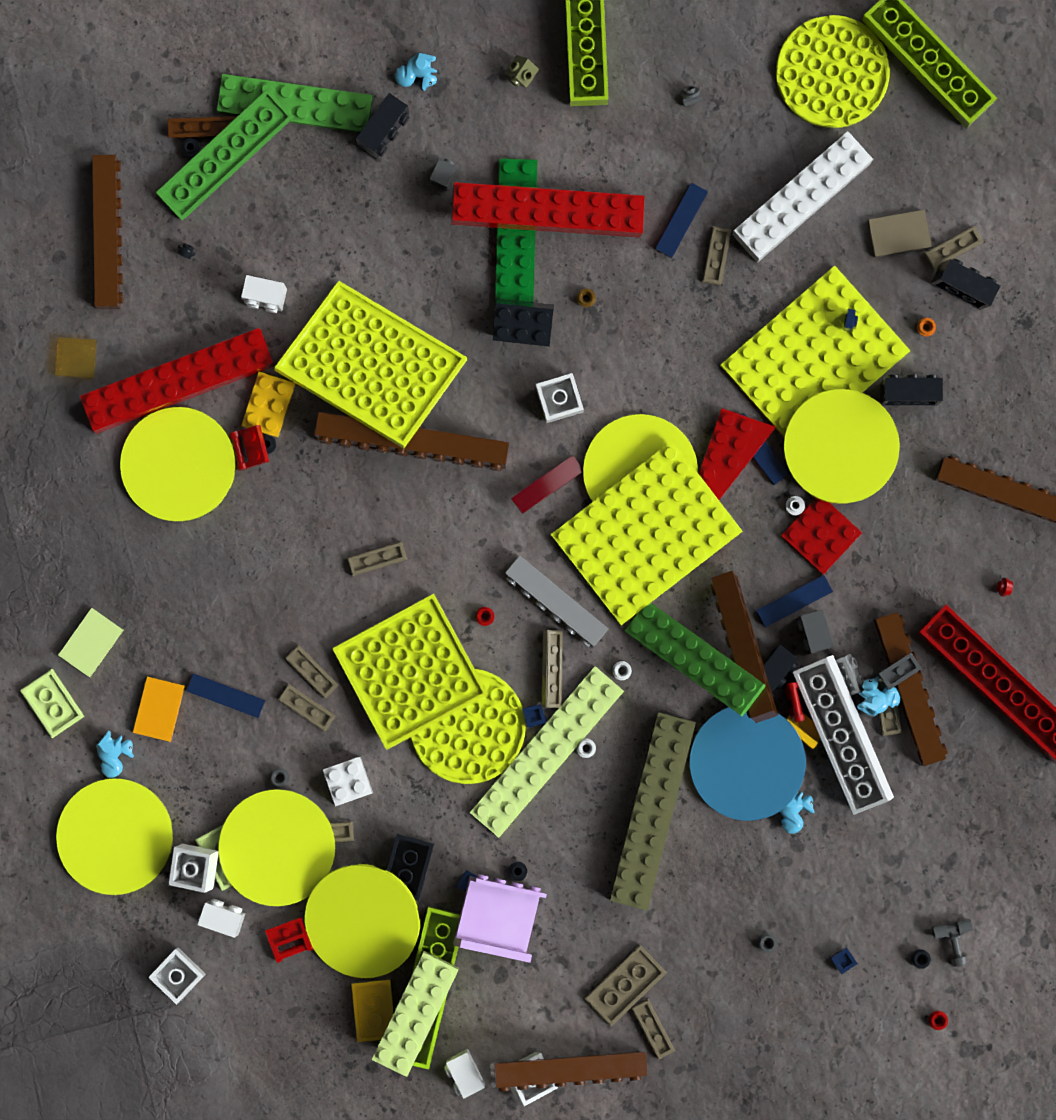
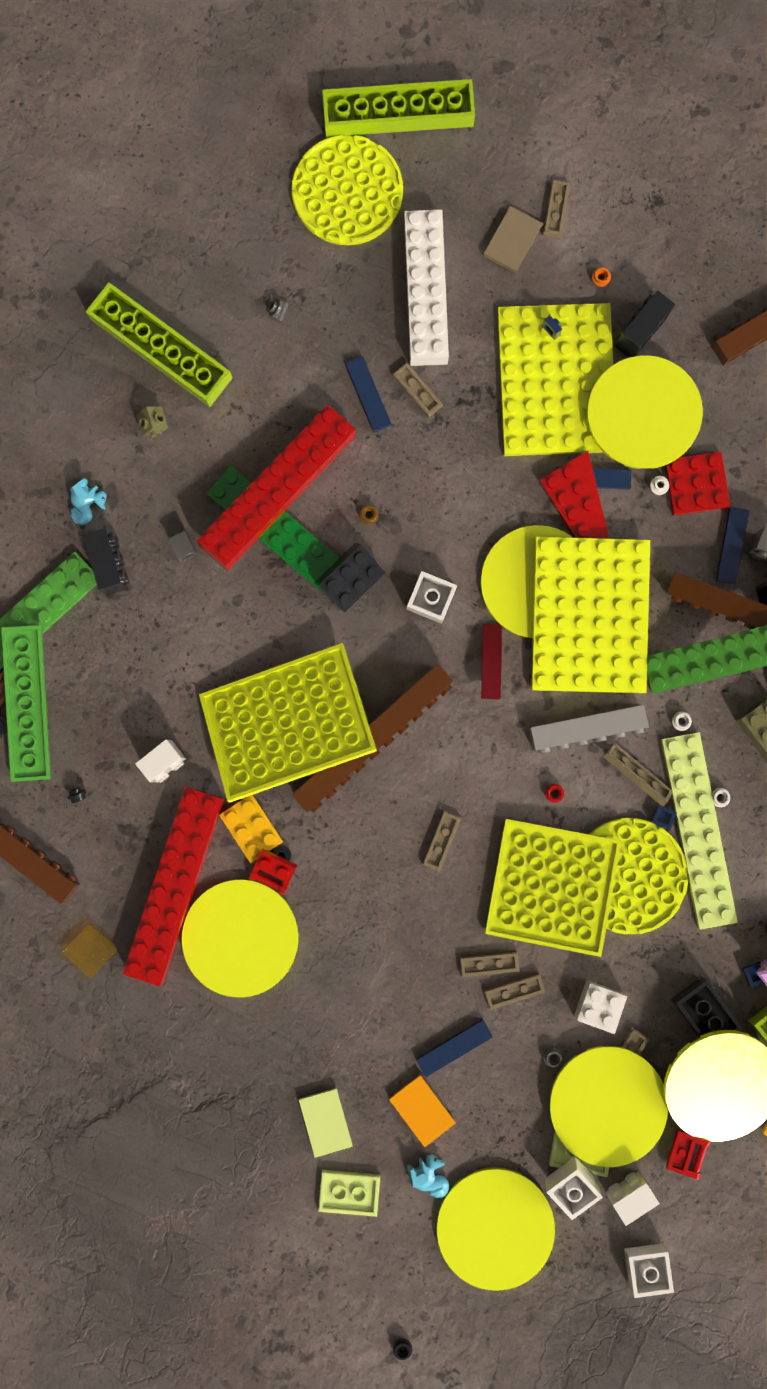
camera: 50 degrees left, 0 degrees up
(965, 283) = (595, 217): black brick -> none

